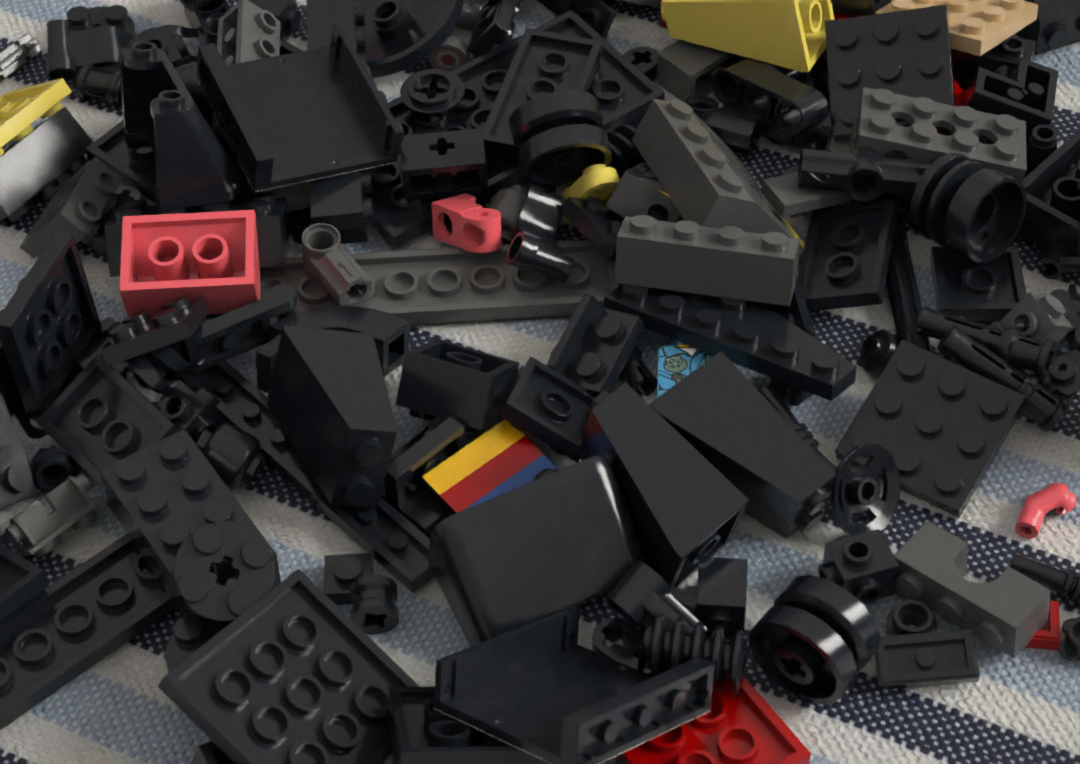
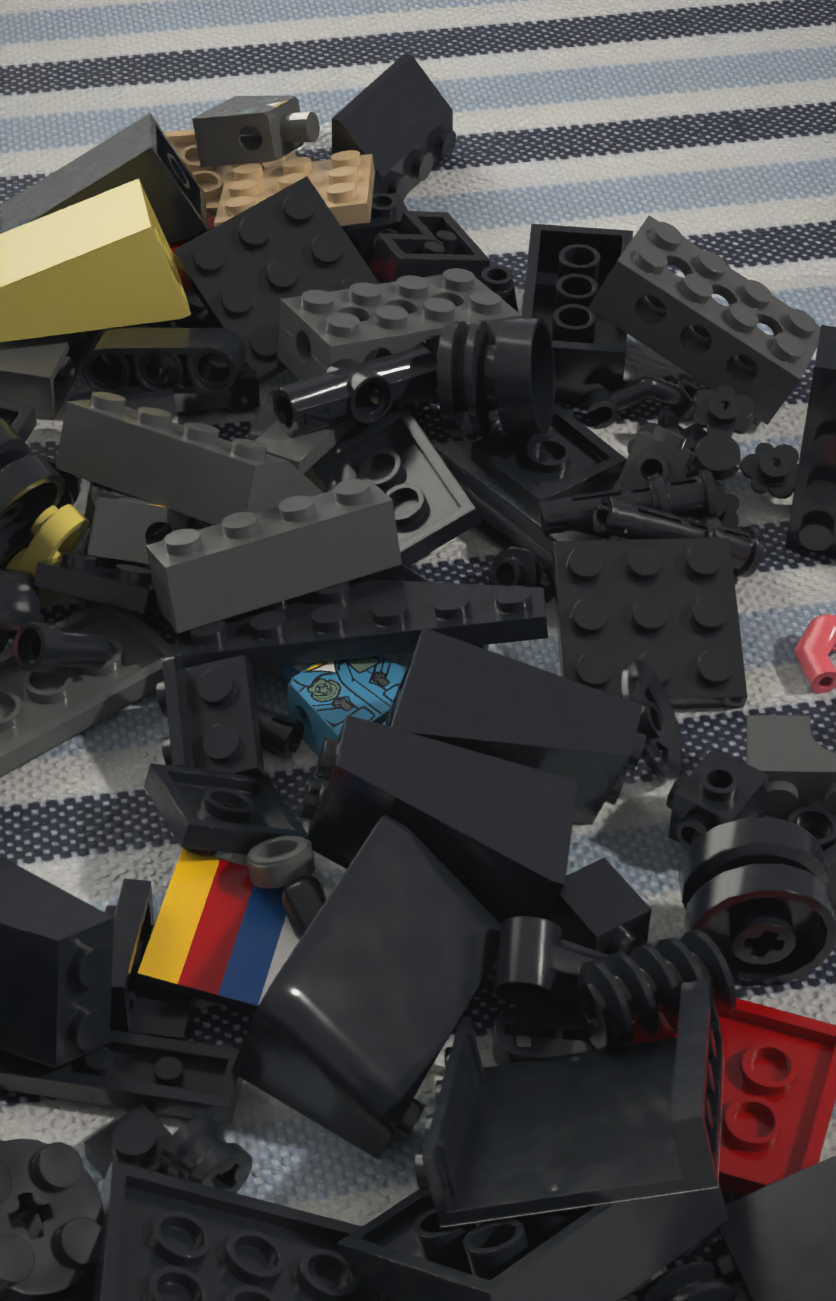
camera: 40 degrees left, 5 degrees down
(455, 382) = (93, 837): black brick -> none
(550, 454) = (280, 861): none -> dark grey tile

